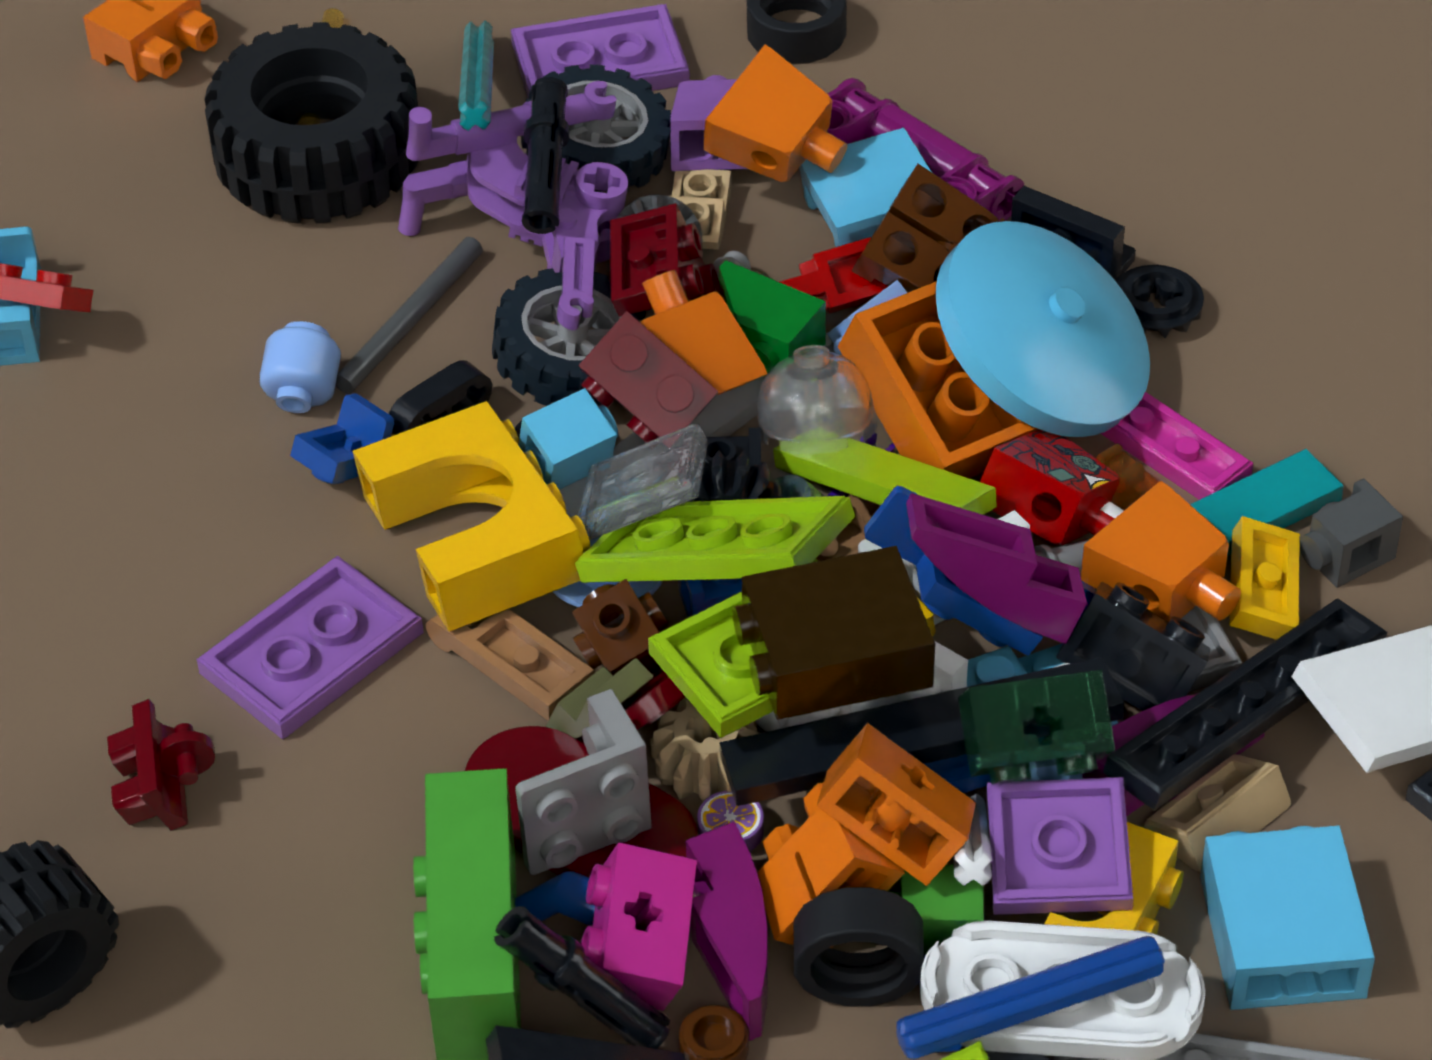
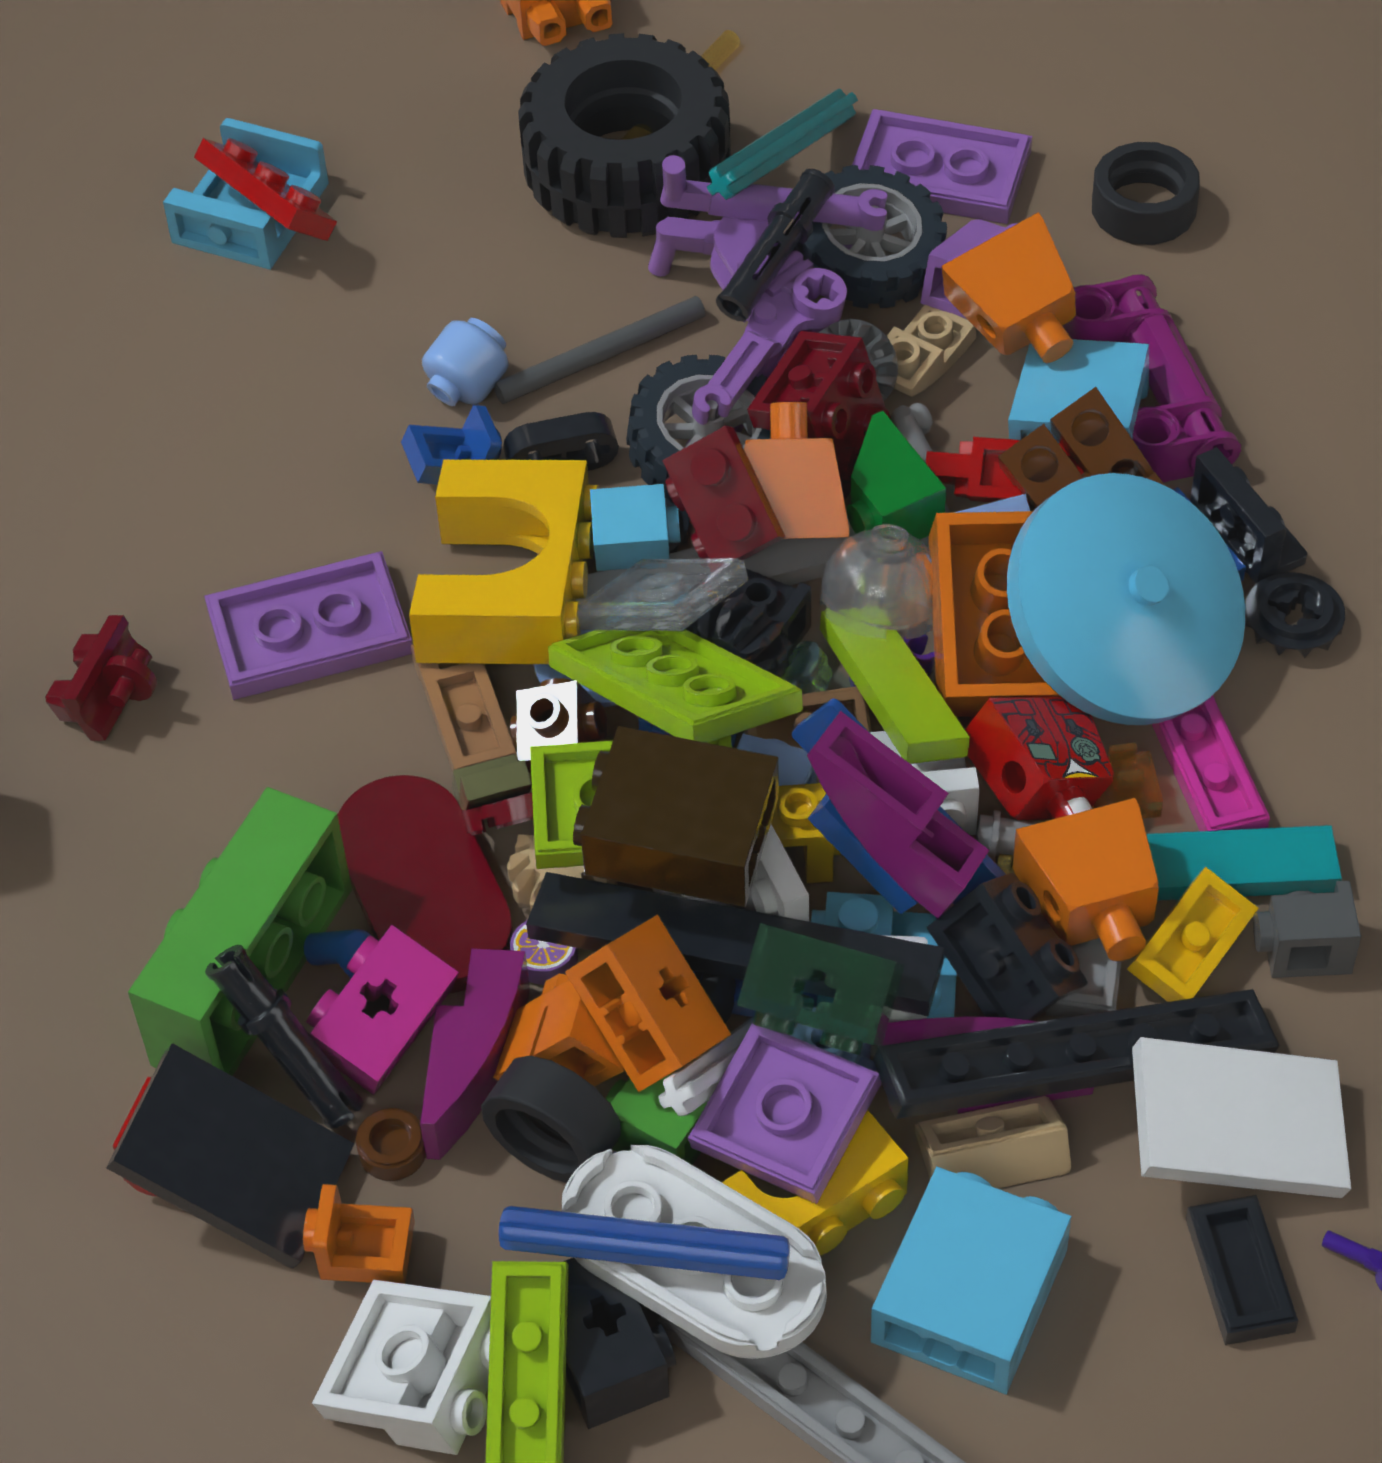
camera: 30 degrees right, 5 degrees up
(590, 799) = (406, 874): light grey bracket -> none

